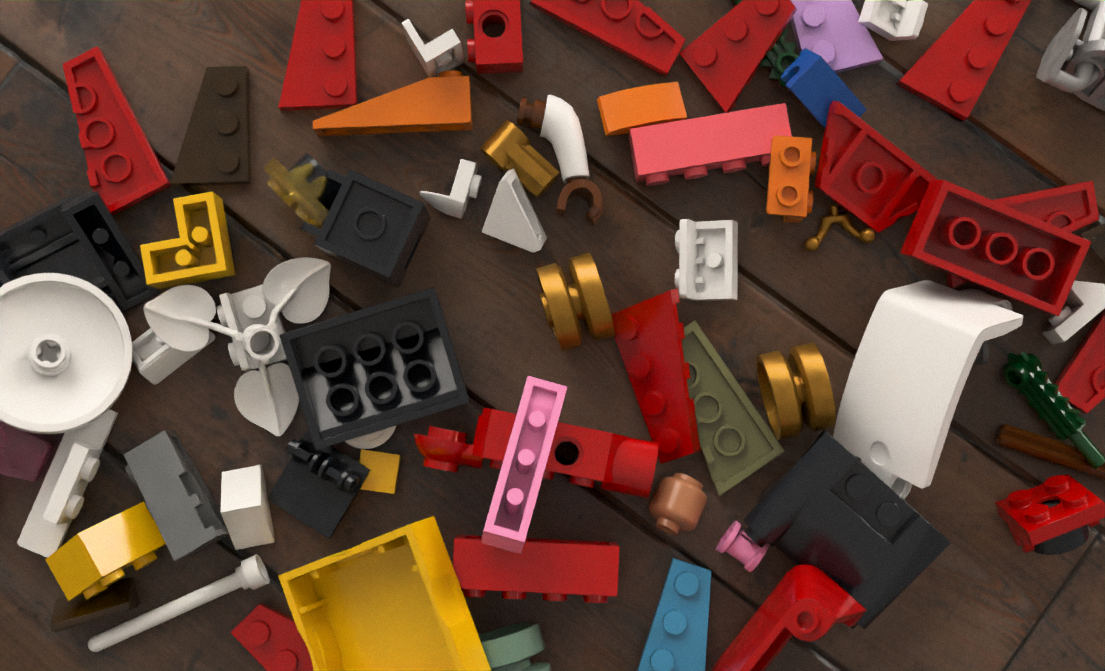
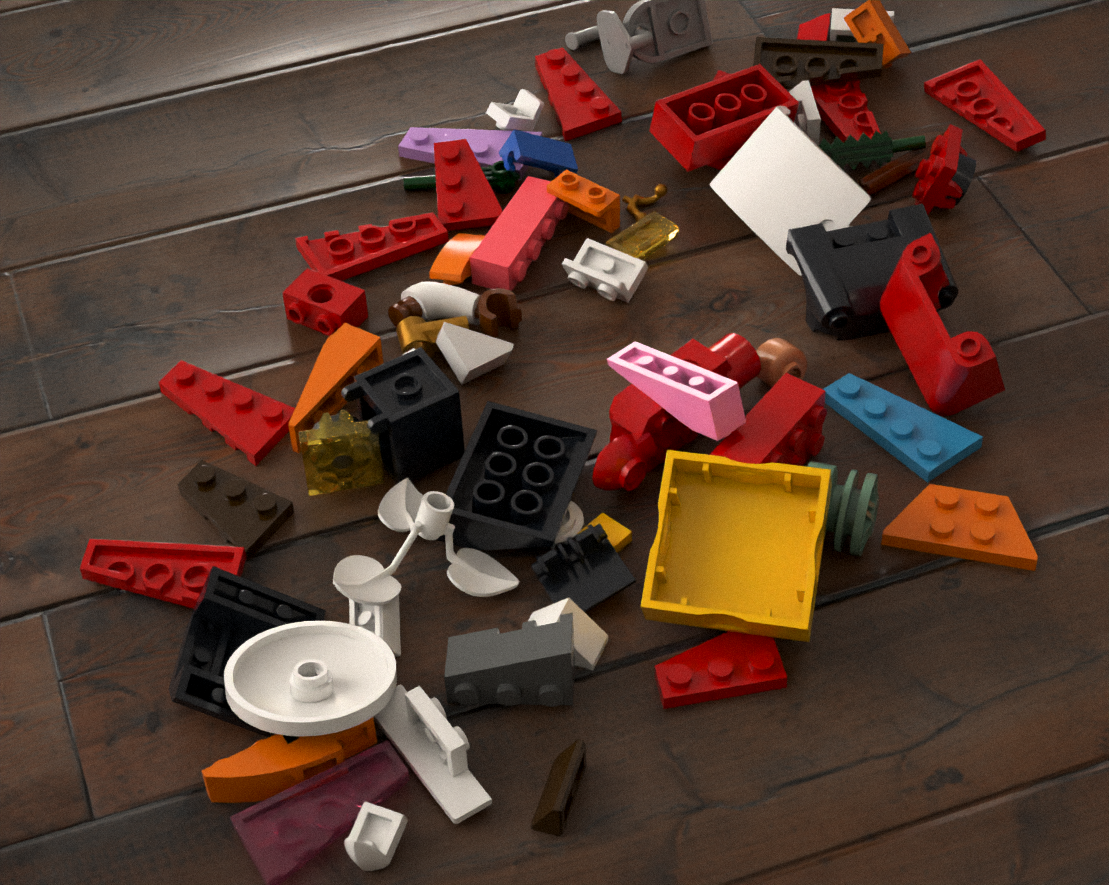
camera: 50 degrees left, 40 degrees down
(101, 552) = (516, 743): yellow brick -> none
(201, 250) = (310, 548): yellow brick -> none
(241, 311) = (423, 562): white bracket -> none
(249, 575) = (622, 659): white piece -> none
(439, 54) = (300, 333): white panel -> none
(578, 301) = (572, 339): pearl gold wheel -> none
(654, 360) = (655, 321): red wing -> none
(729, 426) = (714, 314): olive wing -> none
(741, 547) = (843, 346): bright pink bush -> none
(780, 264) = (645, 236): none -> clear yellow plate
(795, 391) = (744, 254): pearl gold wheel -> none
(867, 171) = (614, 163): red wing -> none

